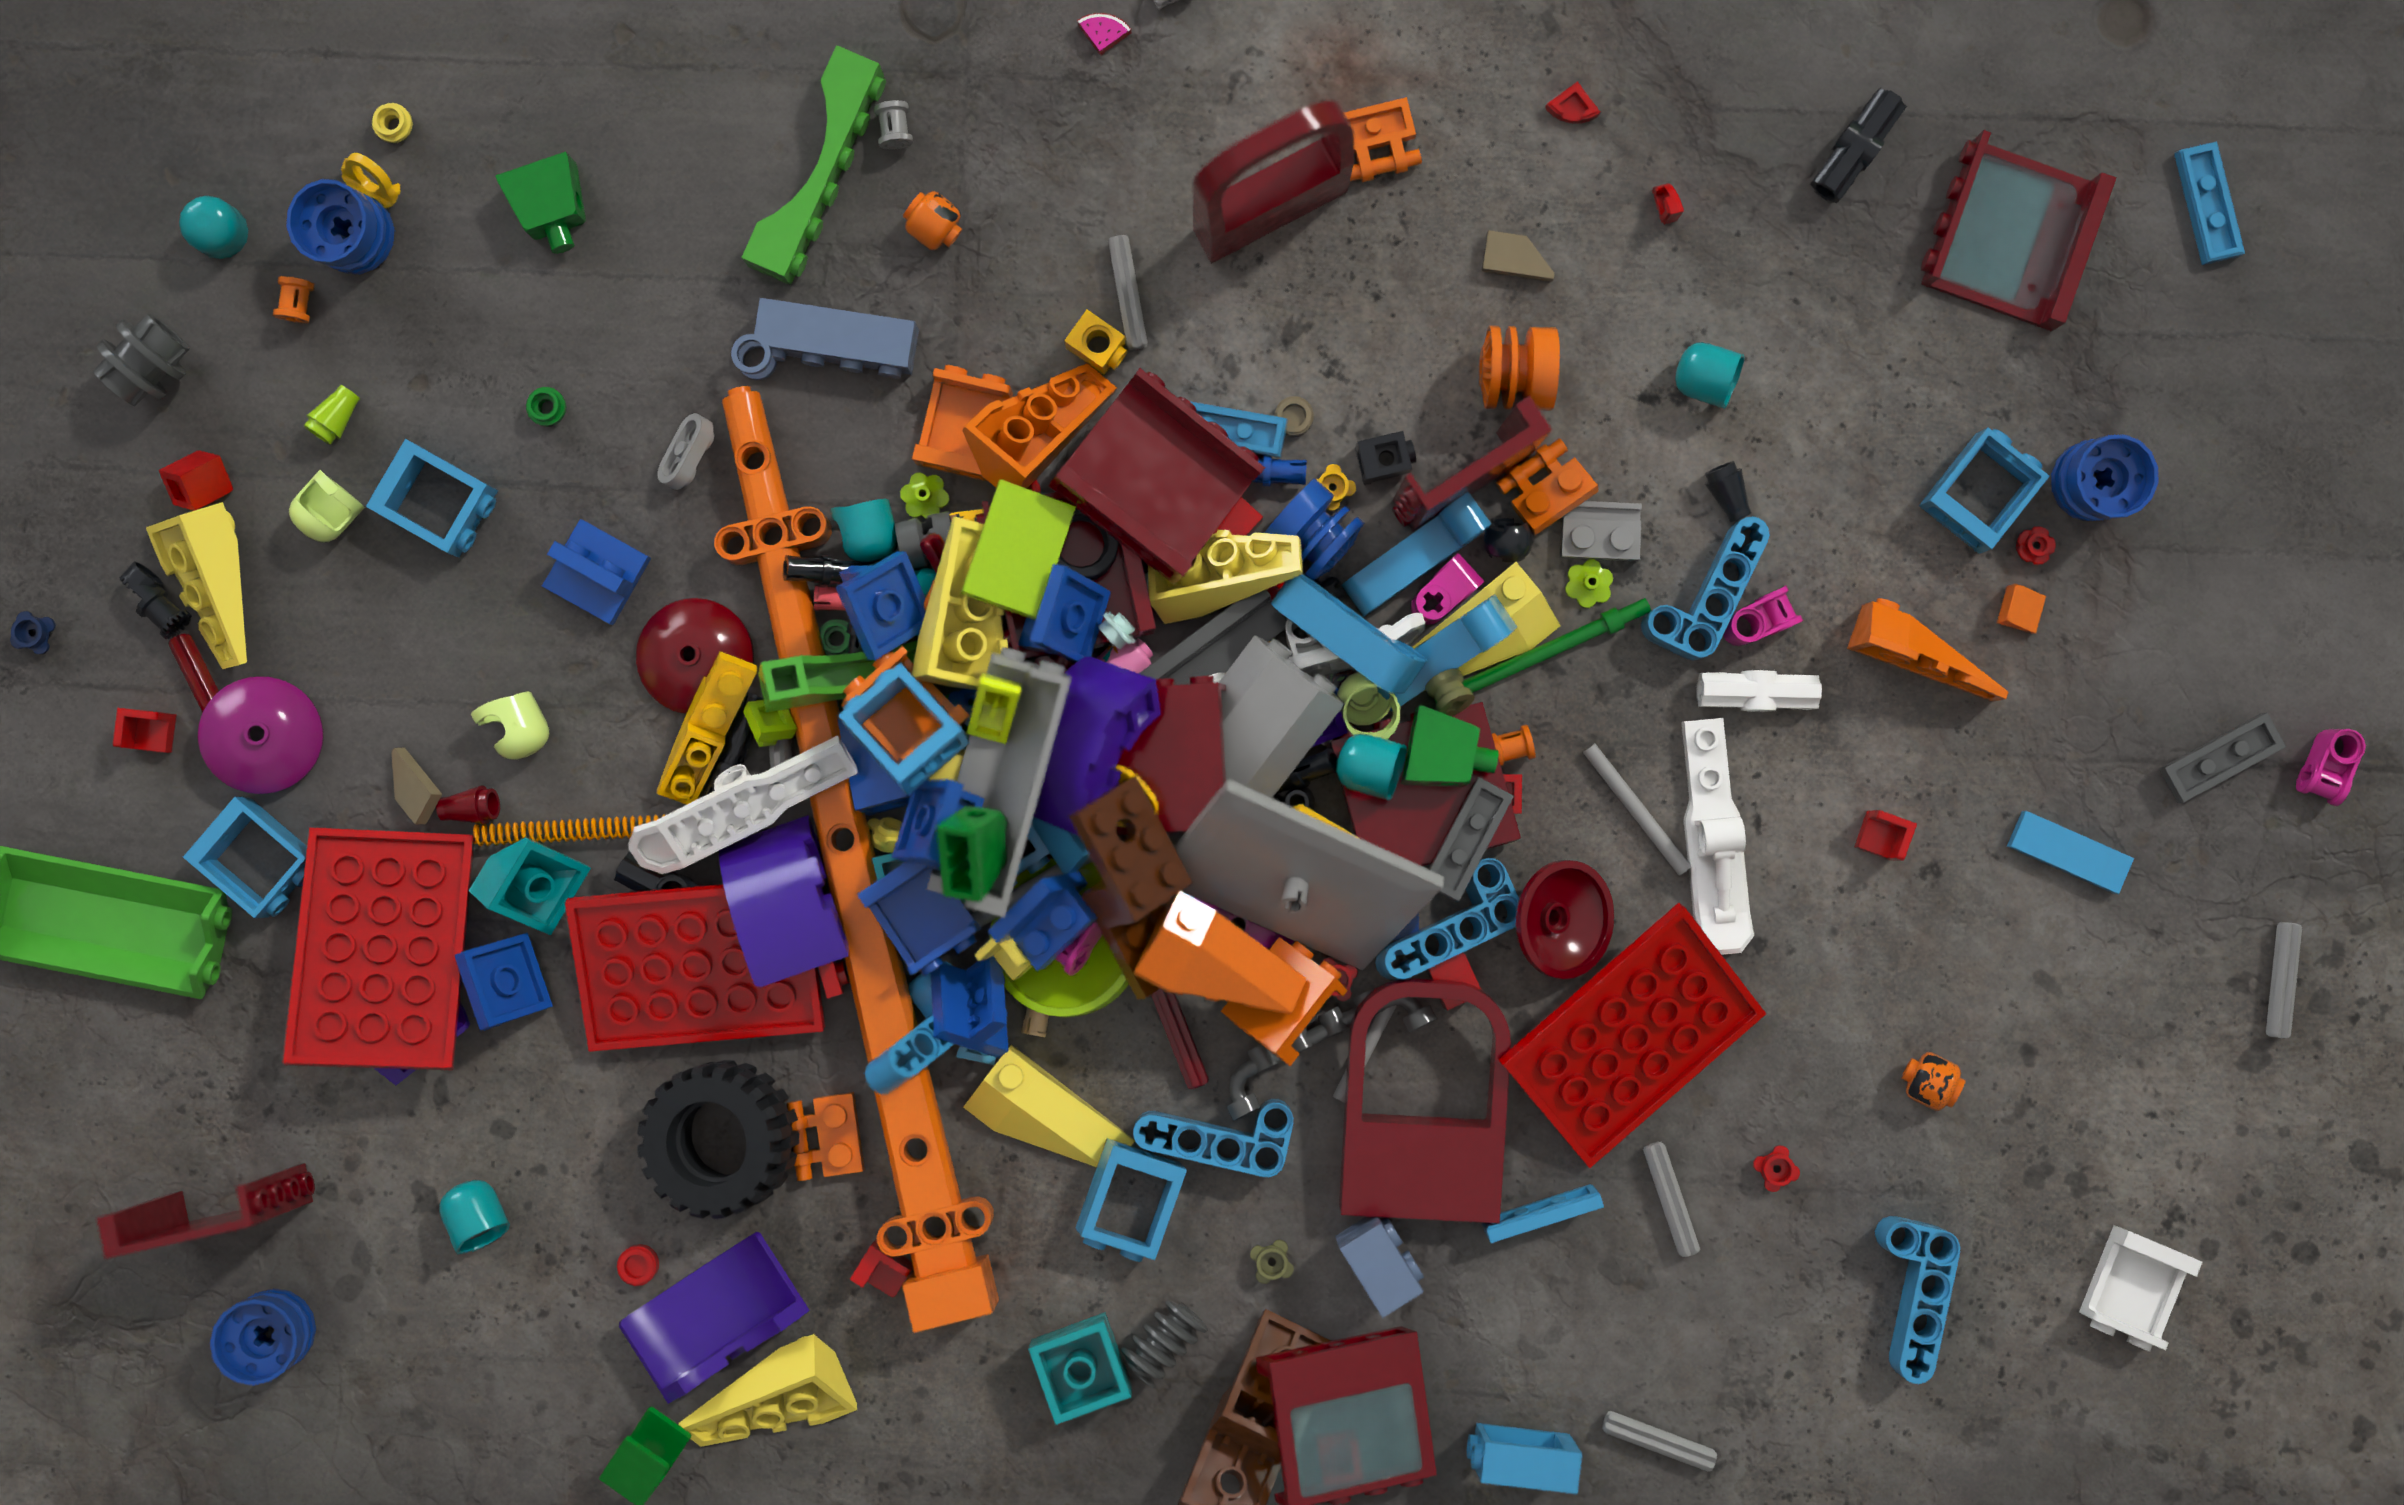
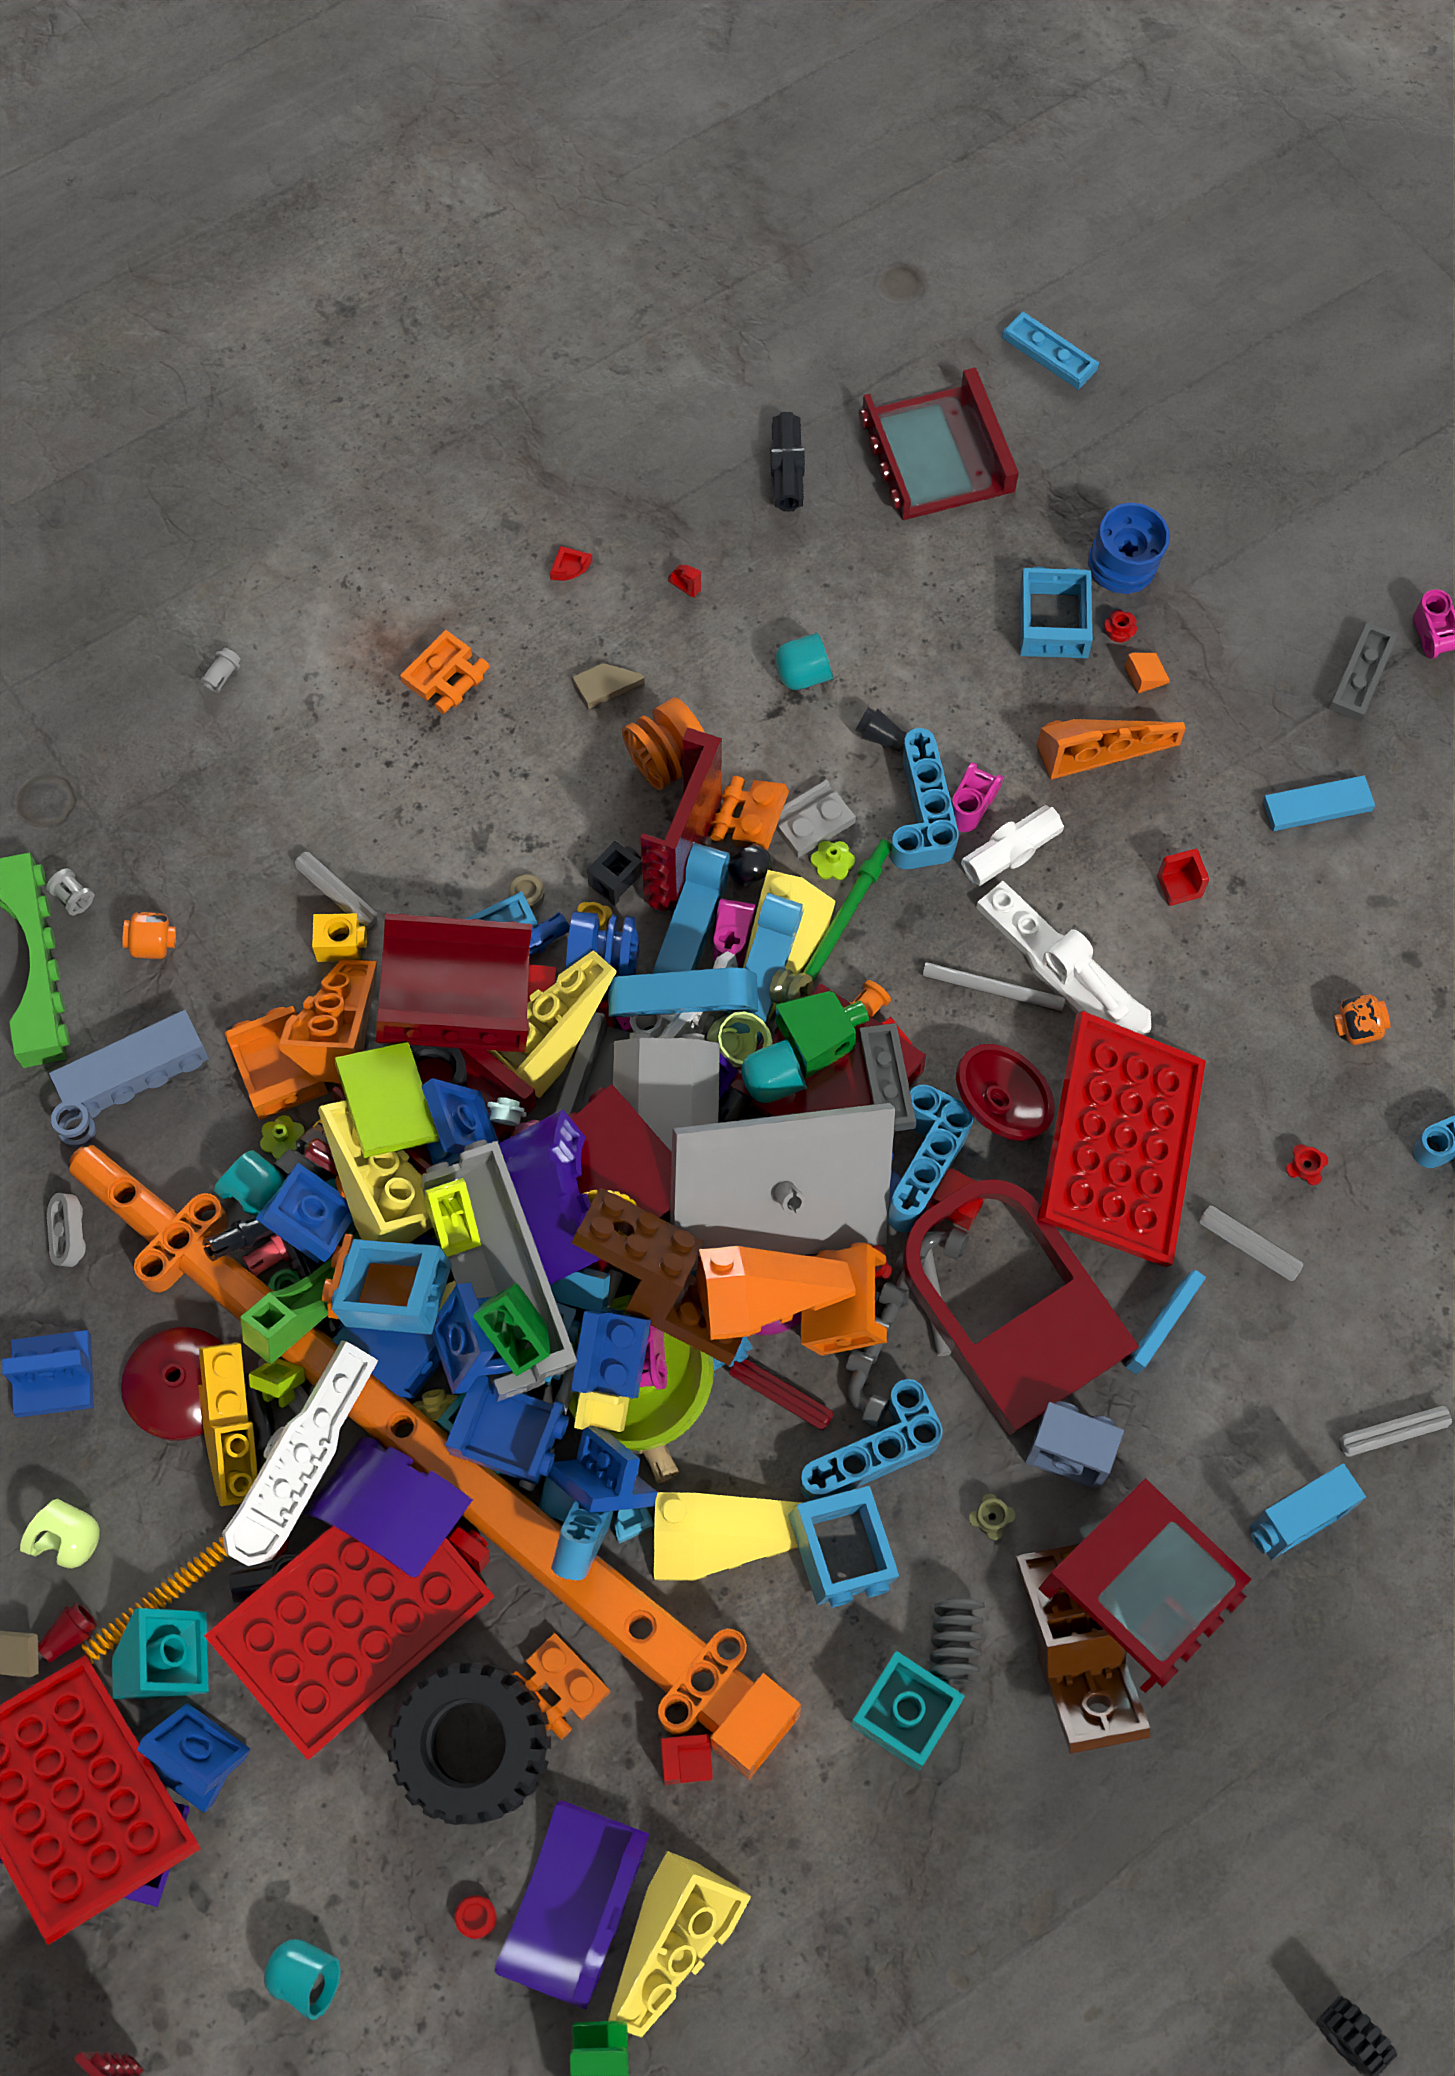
camera: 35 degrees left, 20 degrees down
(1103, 30) = (187, 730): dark pink tile -> none
(1280, 193) = (395, 753): dark red window -> none

